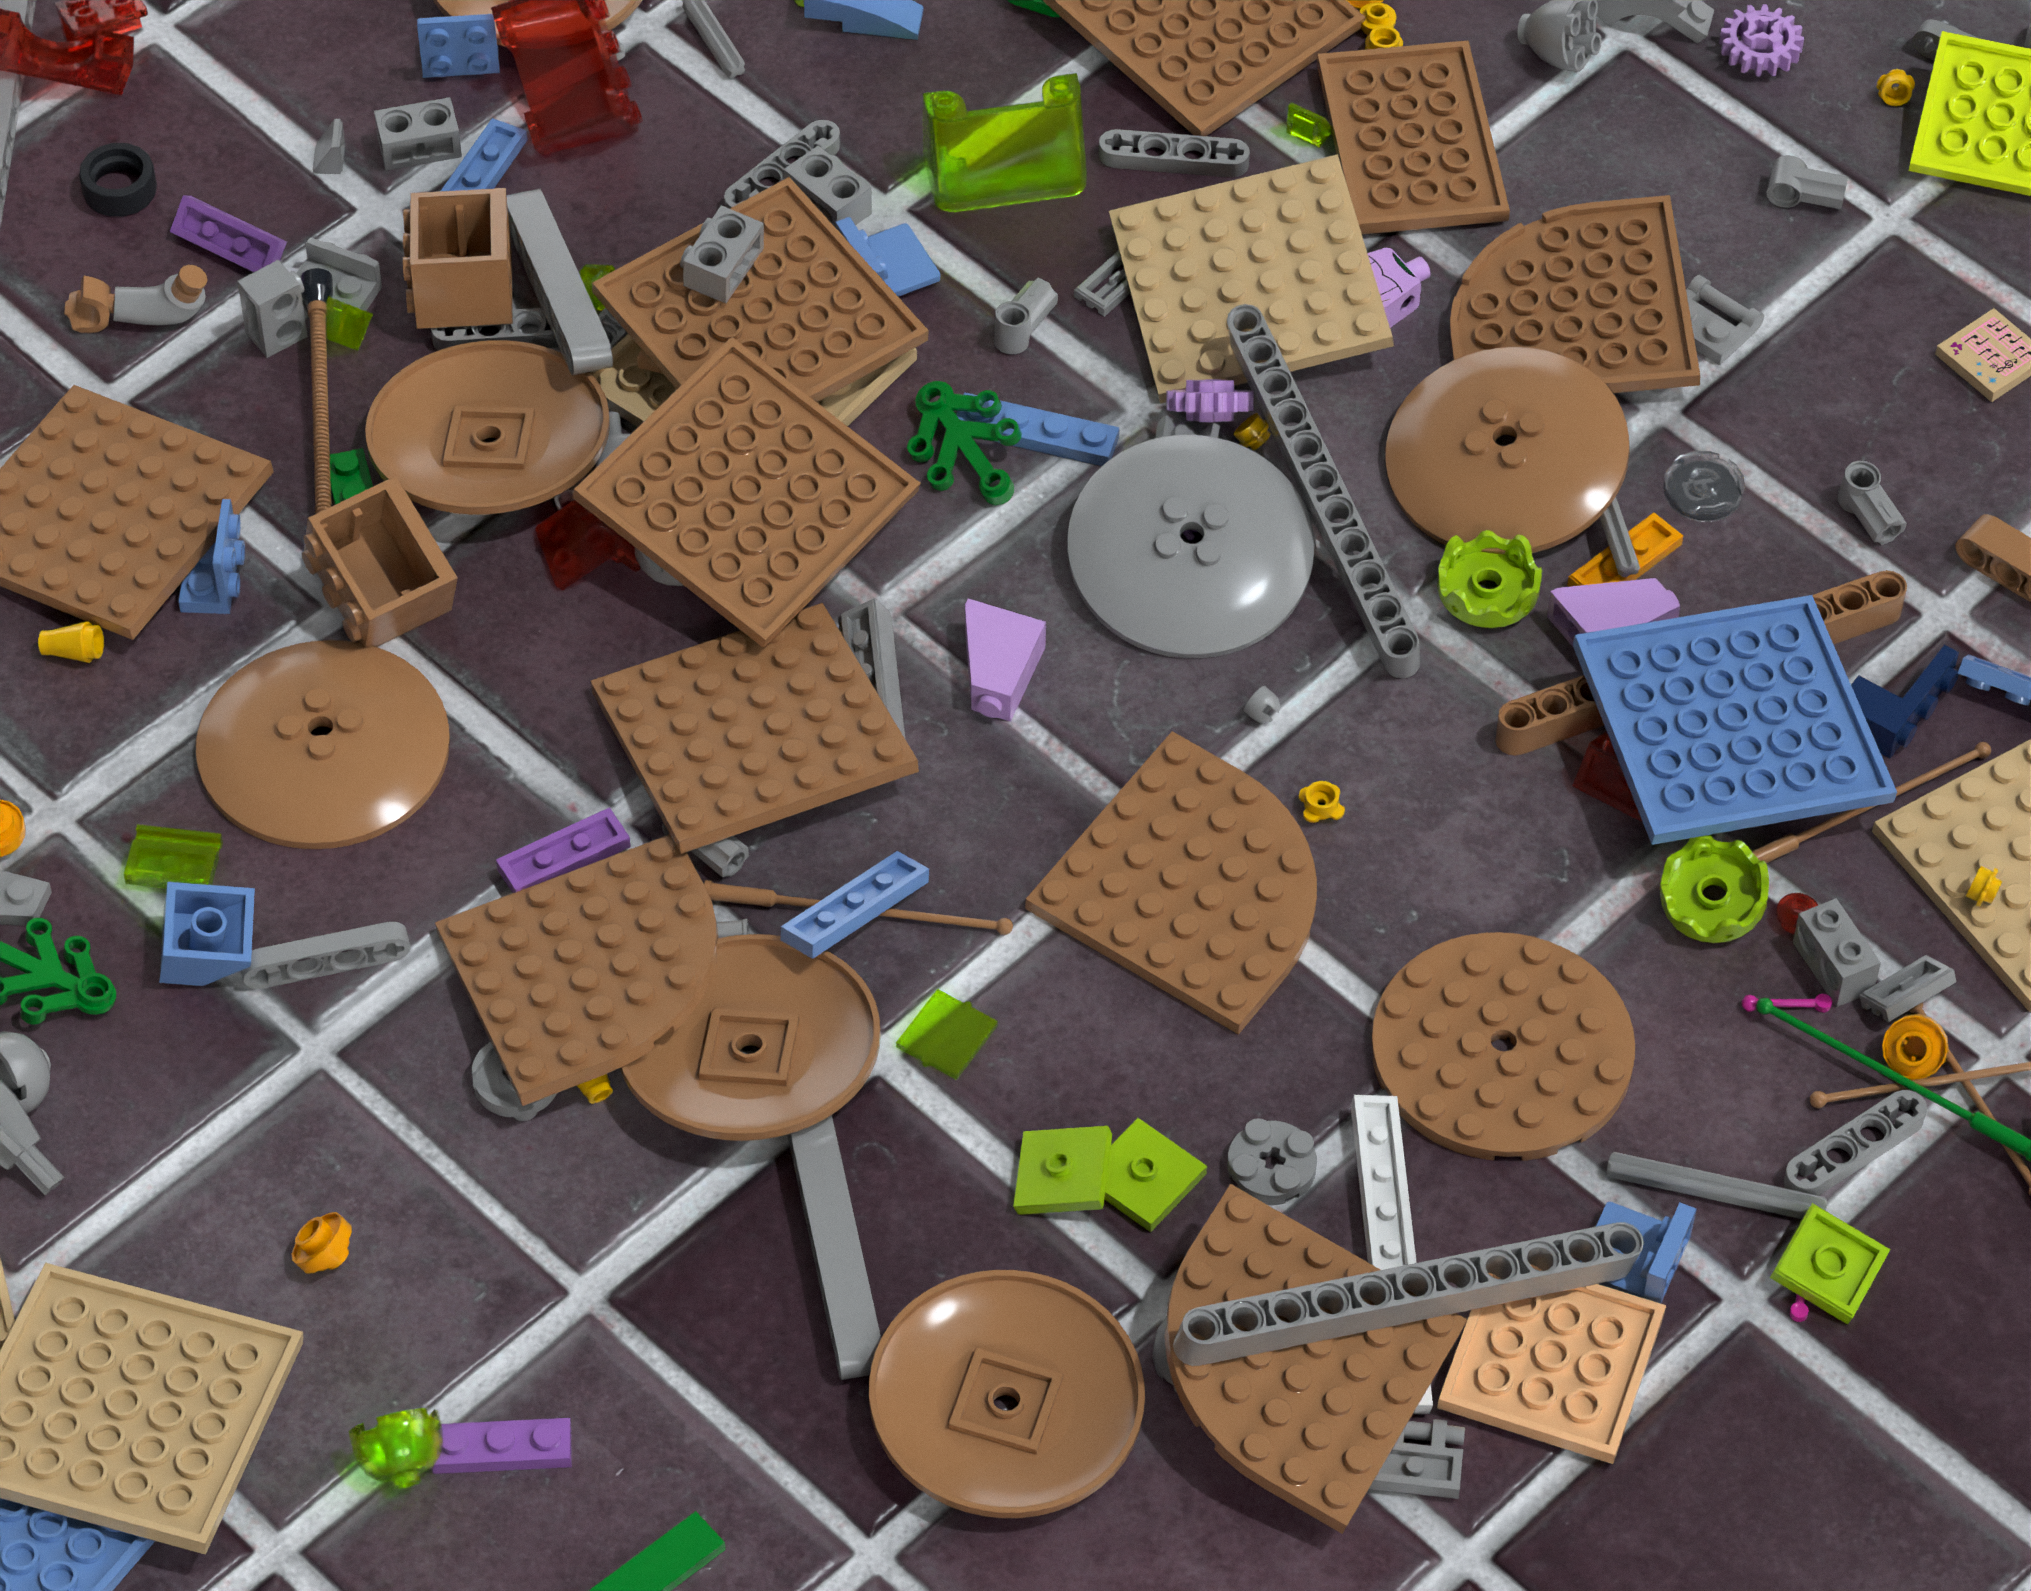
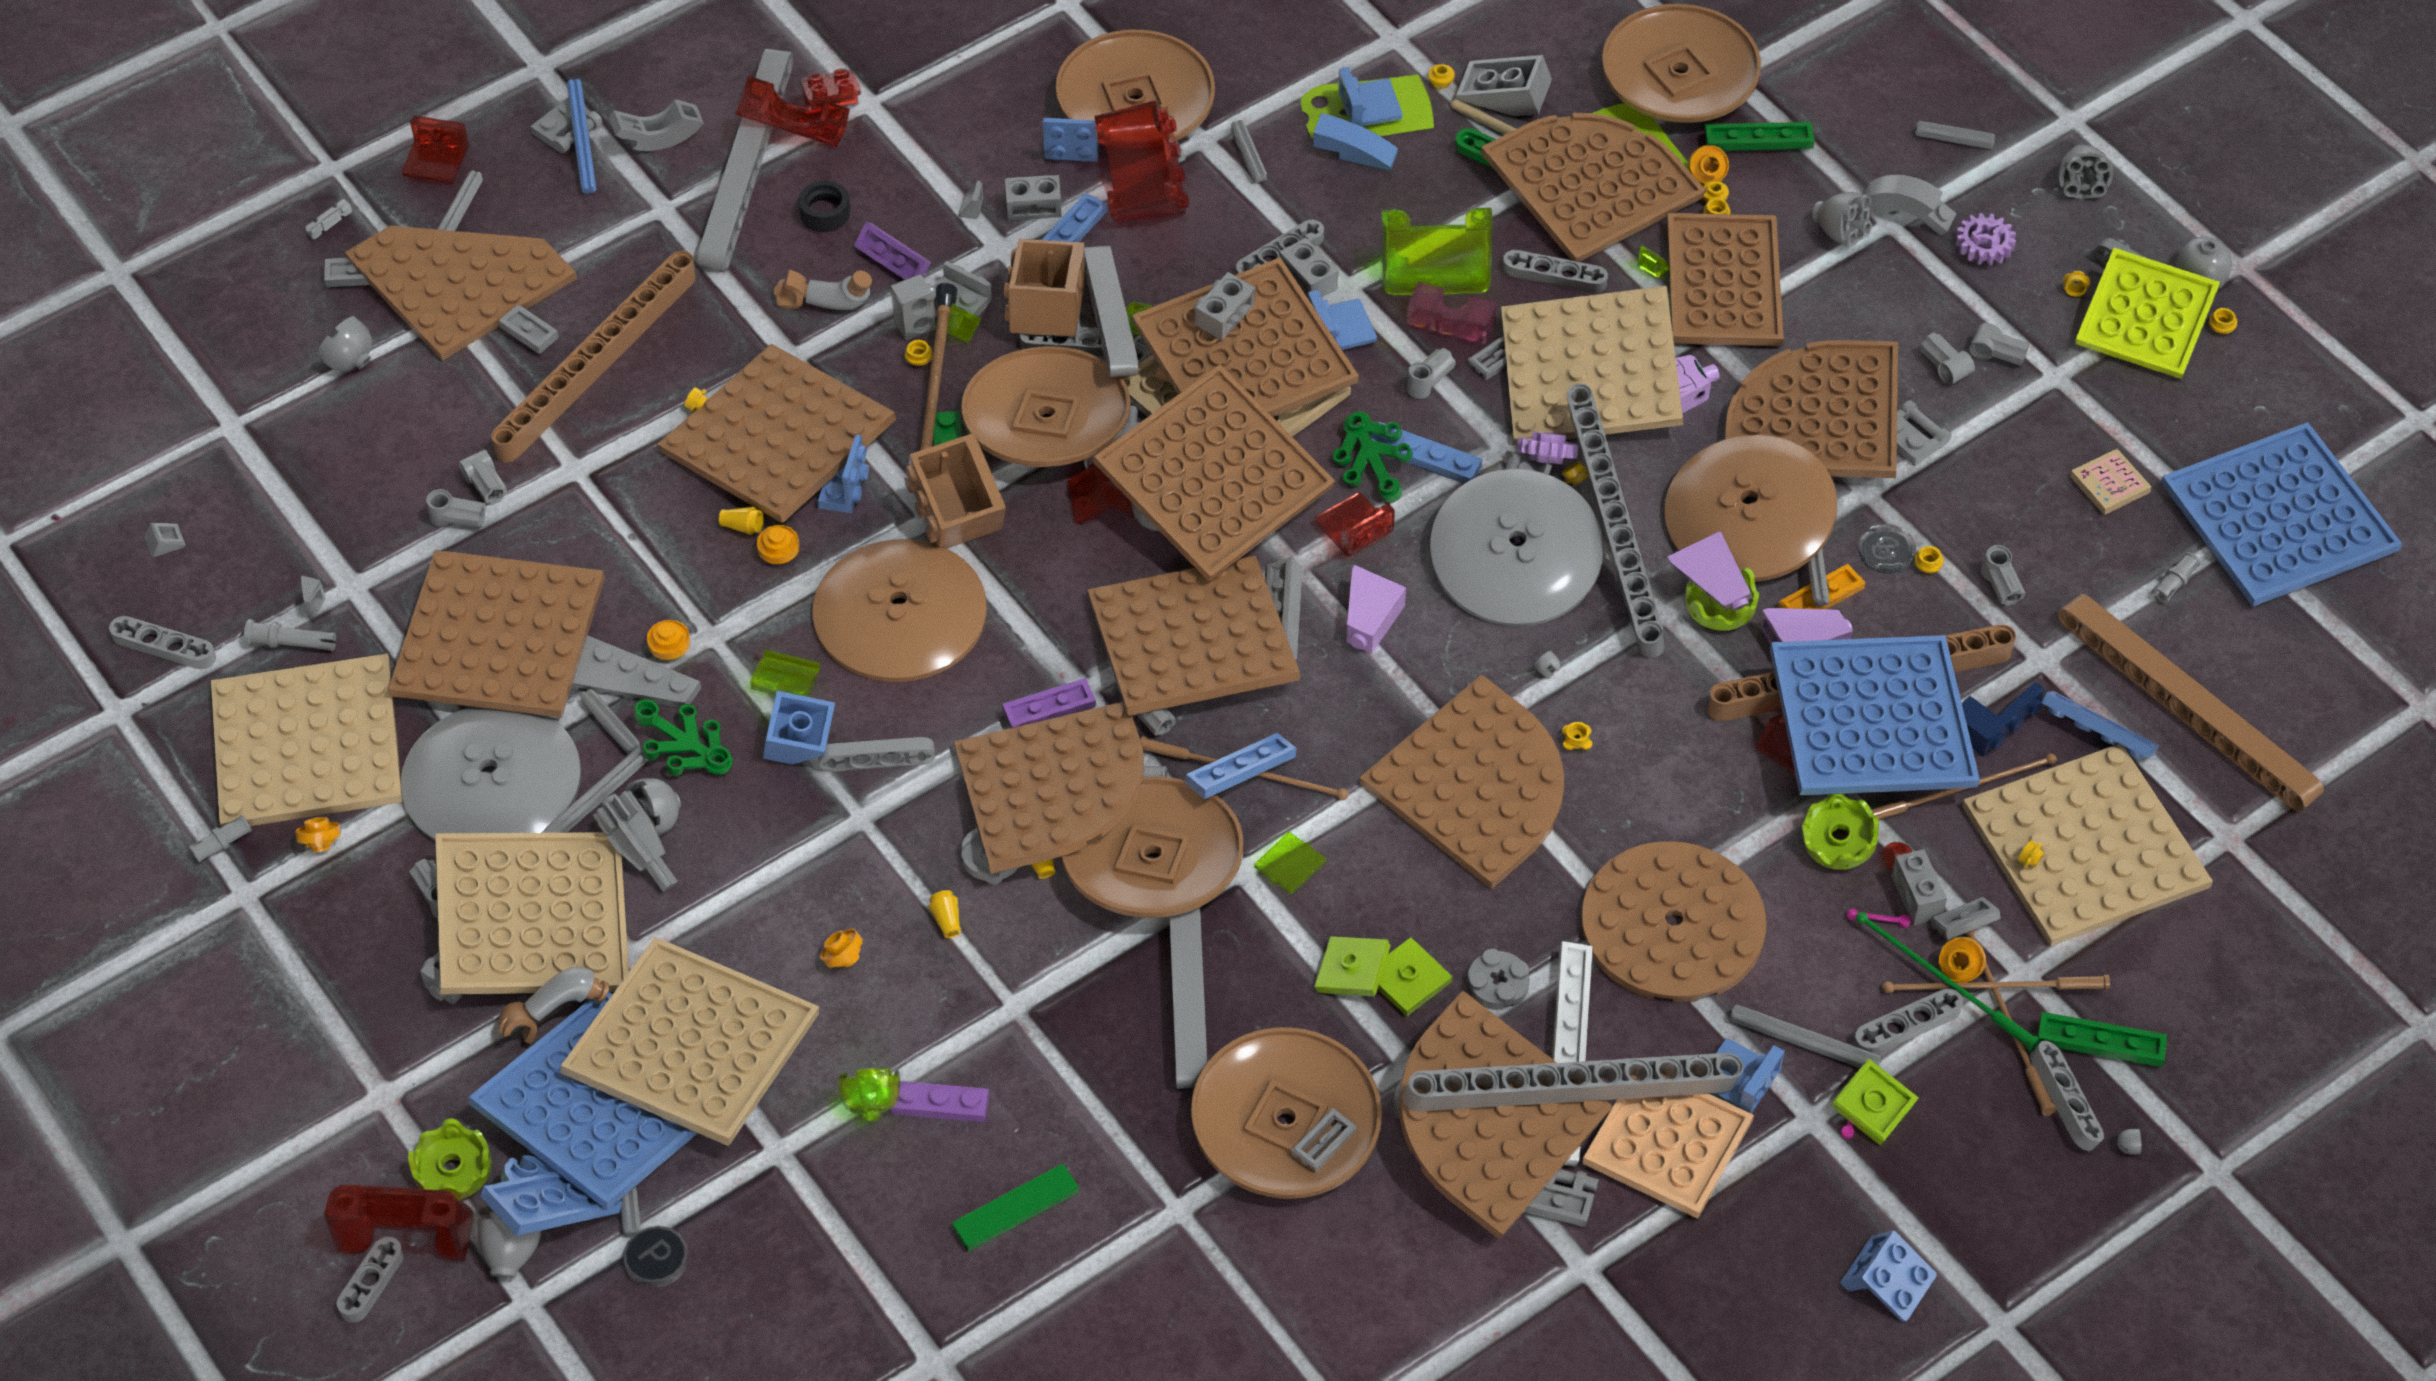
camera: 10 degrees right, 0 degrees up
(131, 671) = (778, 544): none -> light orange plate
(289, 373) = (918, 353): none -> yellow plate
(464, 1170) = (946, 912): none -> yellow cone
(957, 540) = (1356, 523): none -> clear red bracket
(1048, 1454) = (1307, 1158): none -> light grey tile
(1068, 238) = (1469, 322): none -> clear pink arch
(1475, 545) = (1714, 571): none -> lavender slope
(1745, 219) = (1949, 363): none -> light grey piece
(1764, 493) = (1930, 554): none -> yellow plate
(1897, 1502) = (1891, 1273): none -> medium blue bracket

